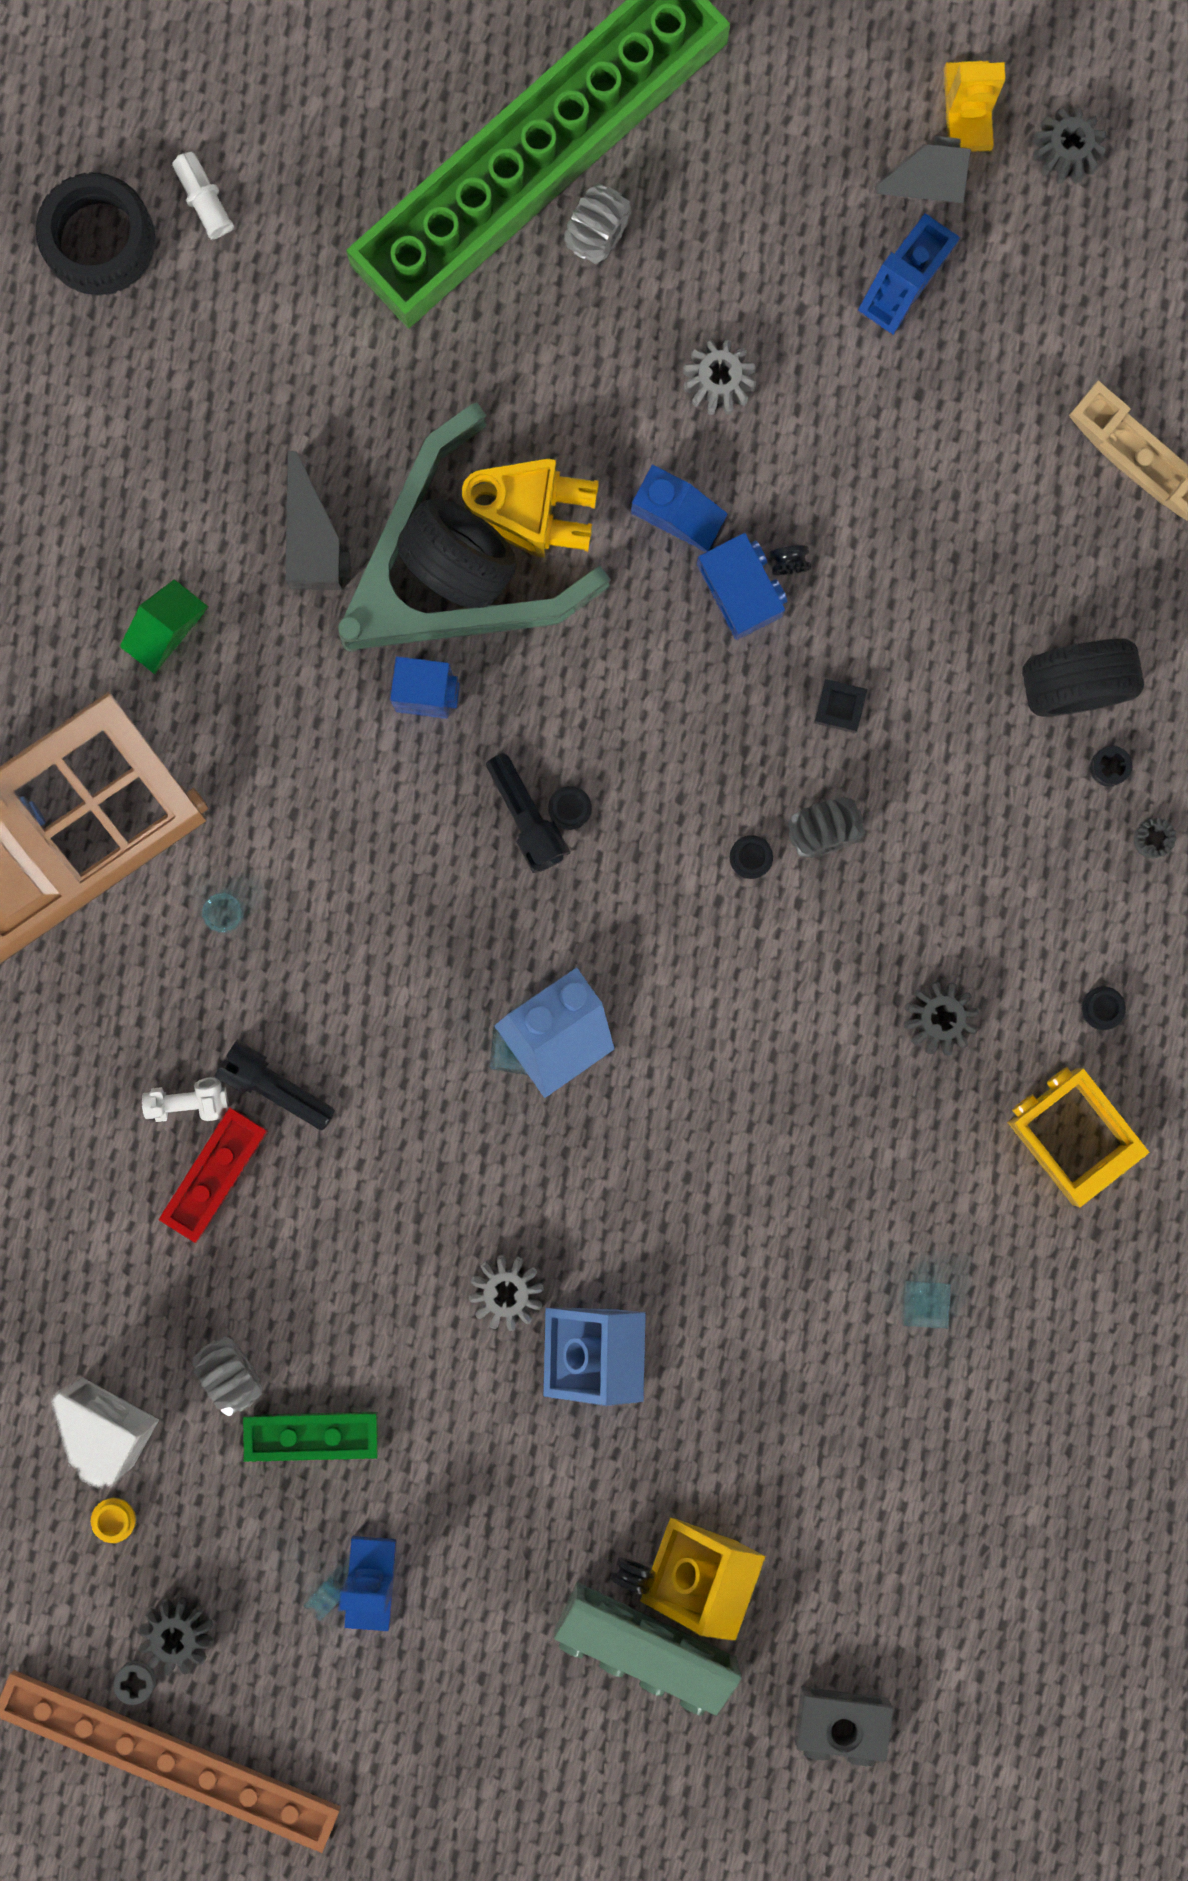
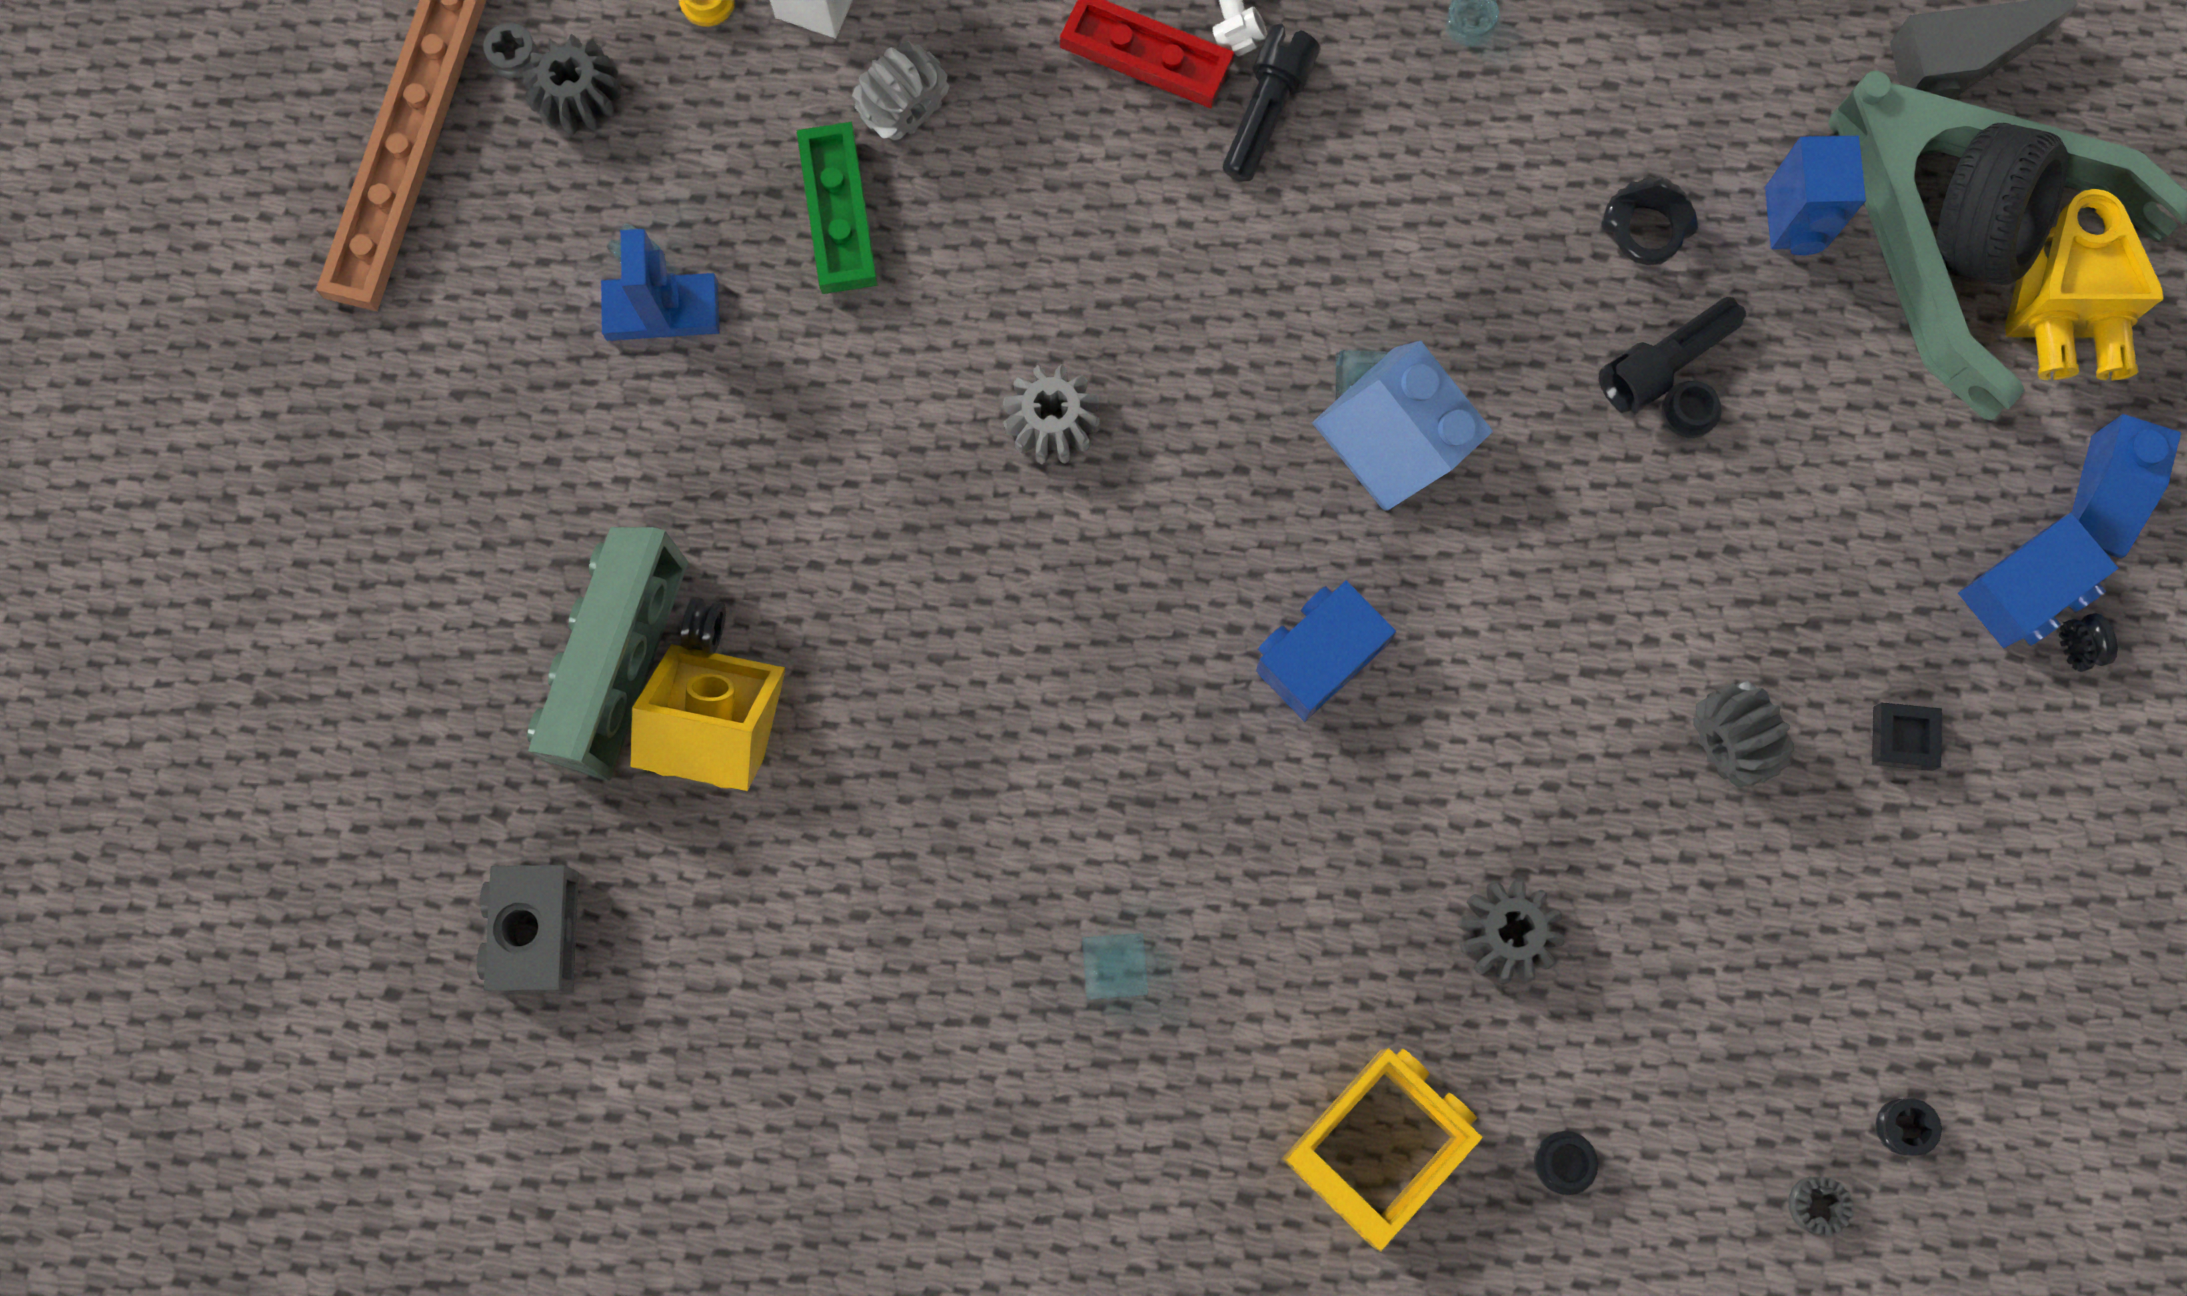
camera: 90 degrees right, 10 degrees down
(406, 831) = (1653, 194): none -> black piece
(594, 1355) = (985, 538): medium blue slope -> none
(718, 1117) = (1323, 649): none -> blue brick
(751, 857) = (1676, 649): black plate -> none
(1083, 677) = (2040, 1057): black tyre -> none

